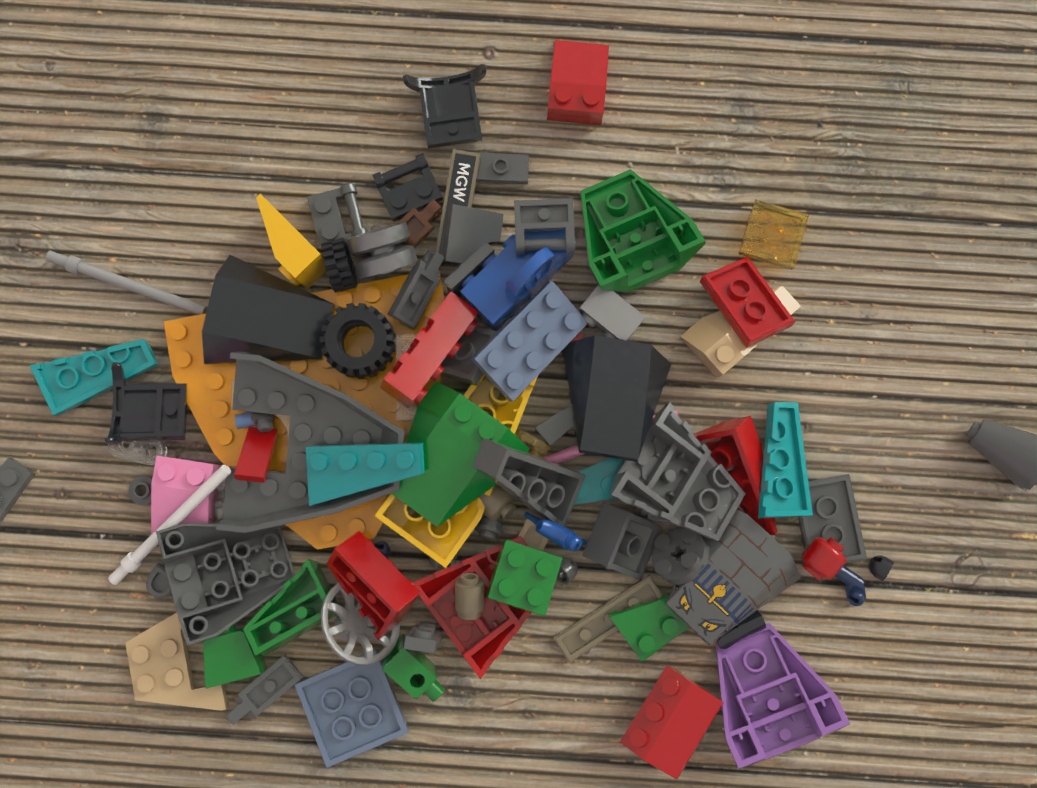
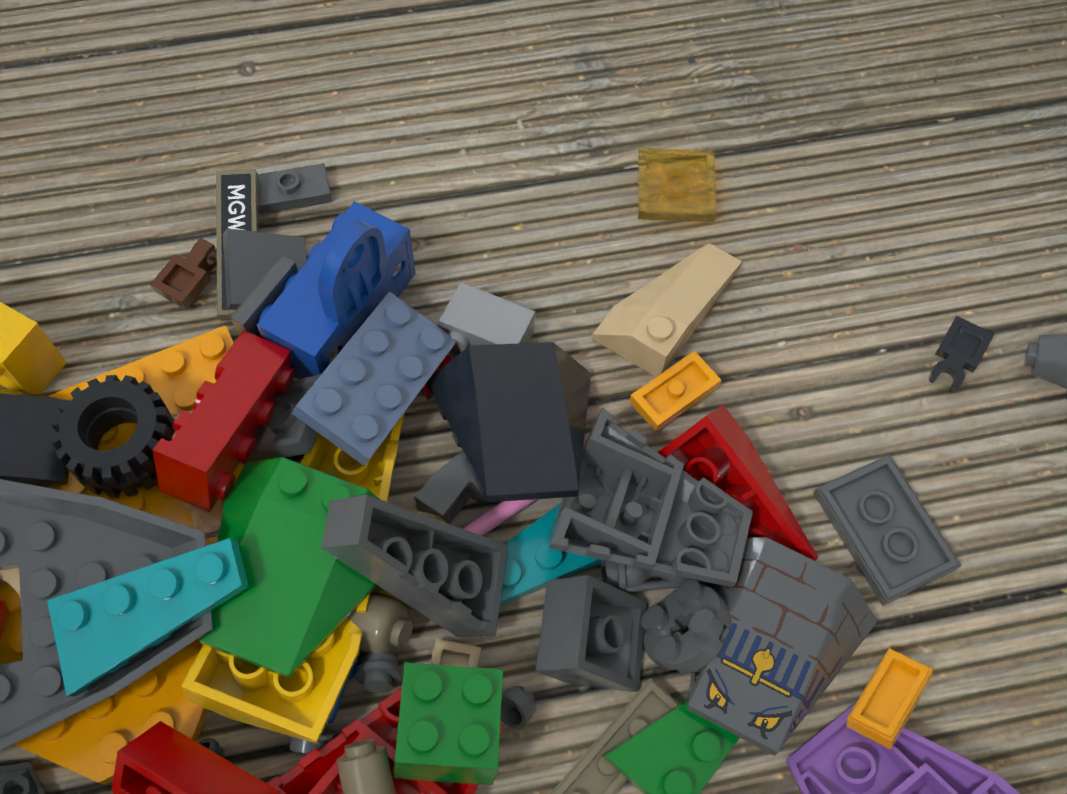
camera: 20 degrees left, 20 degrees down
(328, 217) = (54, 300): dark grey plate -> none
(339, 265) = (73, 346): black tyre -> none
(383, 254) = (133, 307): flat silver wheel -> none
(412, 194) = (156, 251): black plate -> none
(417, 290) = (195, 351): dark grey hinge -> none
(449, 107) = (205, 131): black piece -> none
(544, 216) = (361, 200): dark grey plate -> none
(557, 533) = (487, 639): blue arm -> none
(578, 82) = (370, 77): red slope -> none
(635, 233) = (495, 221): green wedge -> none
(723, 393) = (675, 391): none -> light orange plate
(747, 301) = (669, 264): red tile -> none
(747, 627) = (819, 722): black bar -> none
(784, 468) = (797, 470): teal wing -> none
(790, 627) = (889, 698): none -> light orange tile
(823, 558) = (900, 574): red head -> none
(853, 585) = (957, 609): dark blue arm -> none
(880, 566) = (985, 572): black hinge -> none
(928, 412) = (961, 349): none -> black plate

